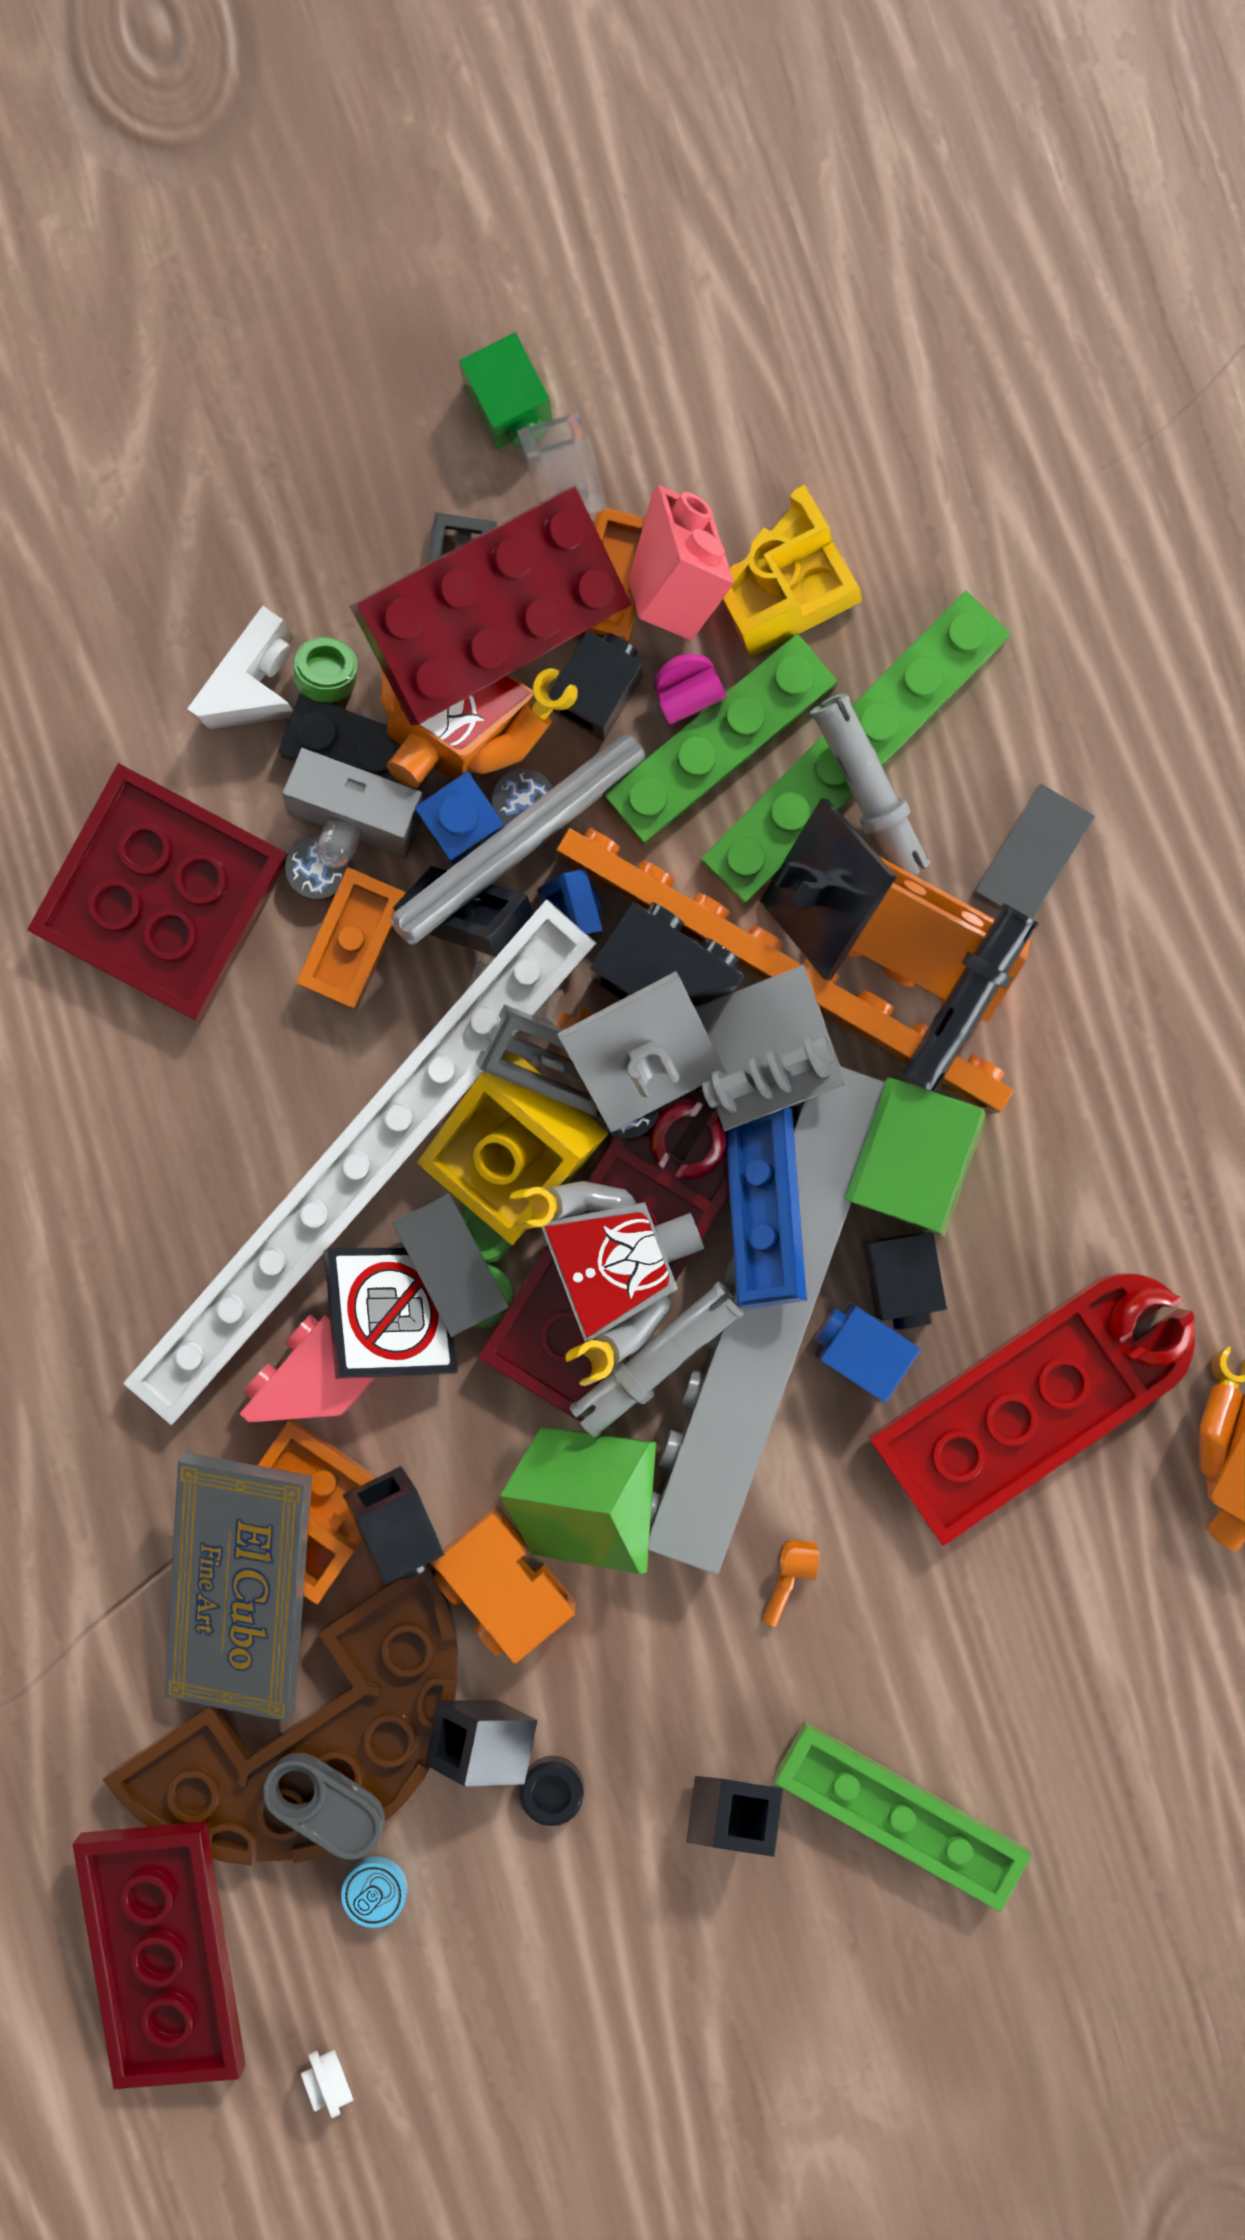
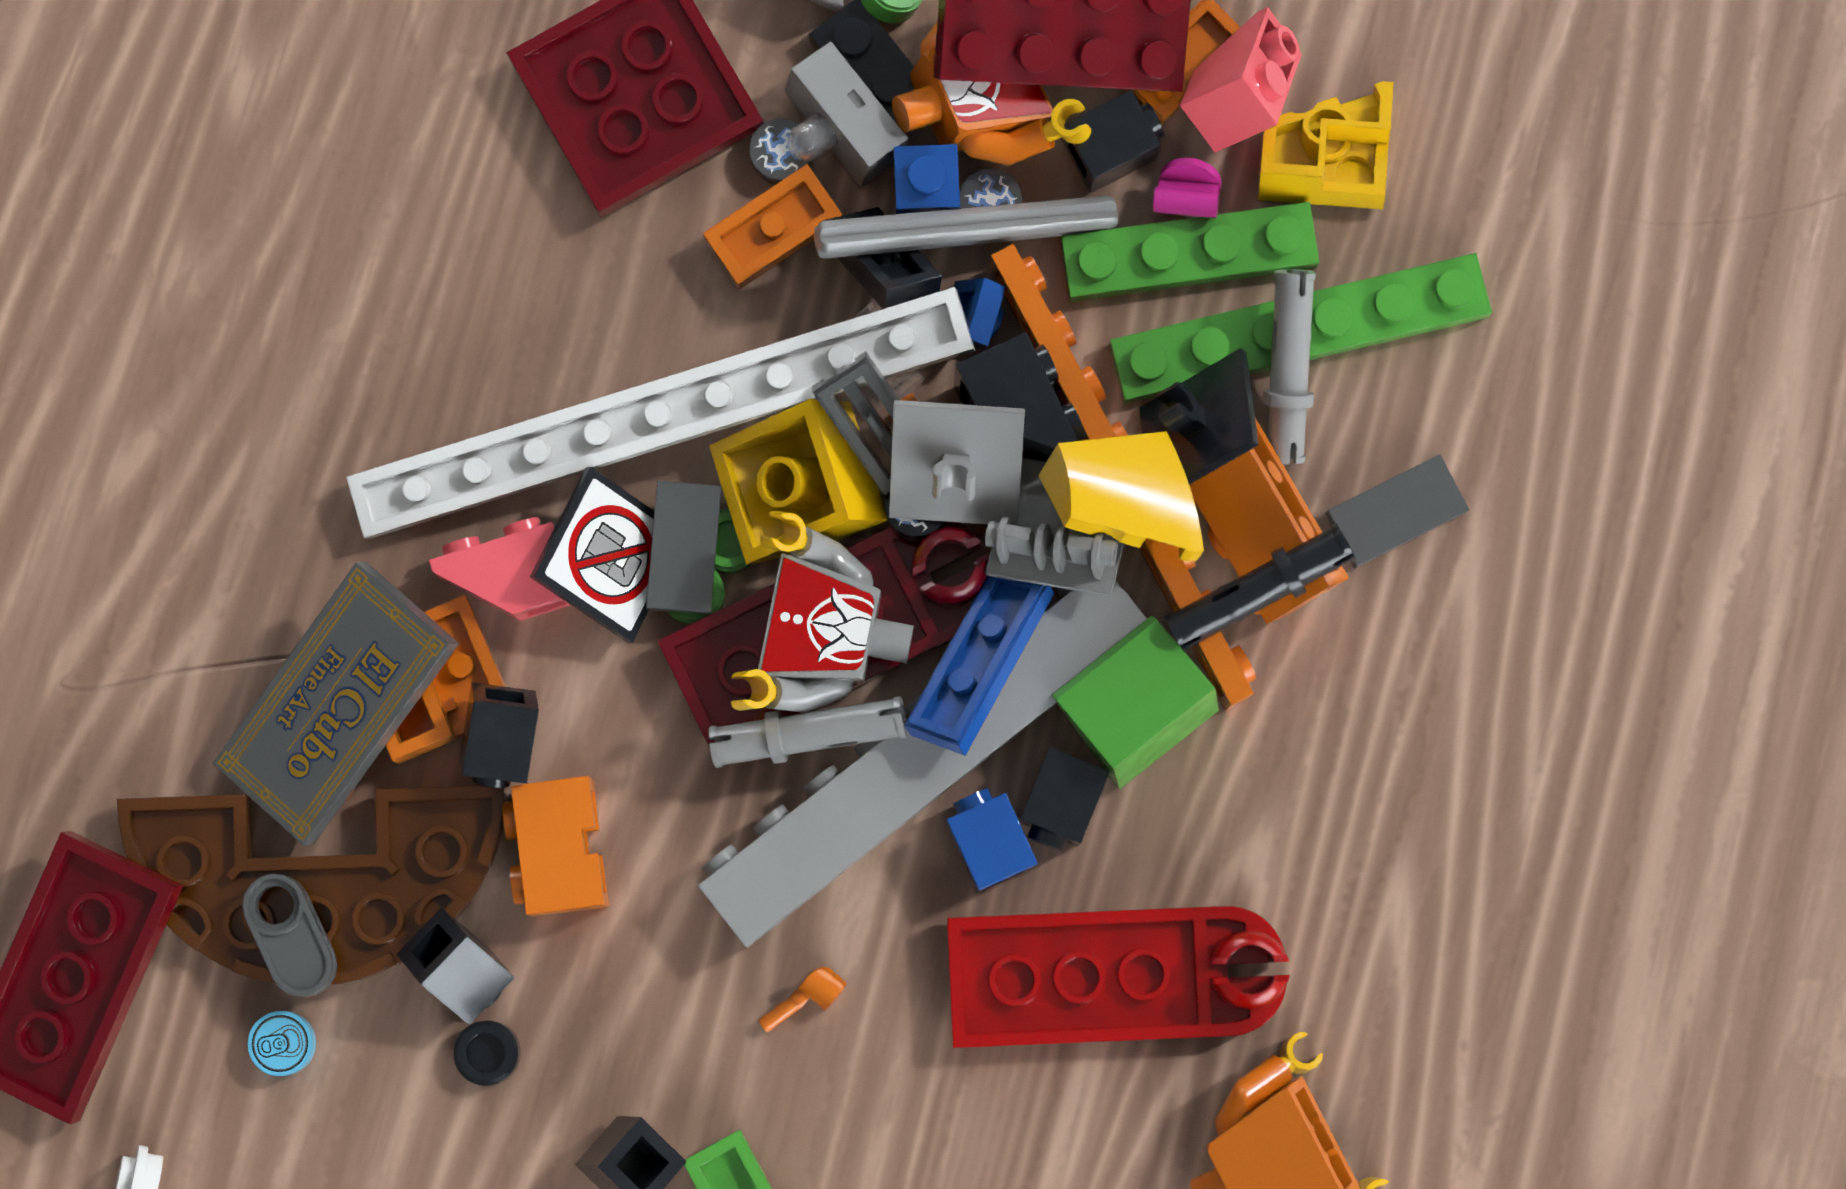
camera: 30 degrees right, 5 degrees down
(584, 1498) = (671, 815): bright green slope -> none
(805, 988) = (1126, 490): none -> yellow slope

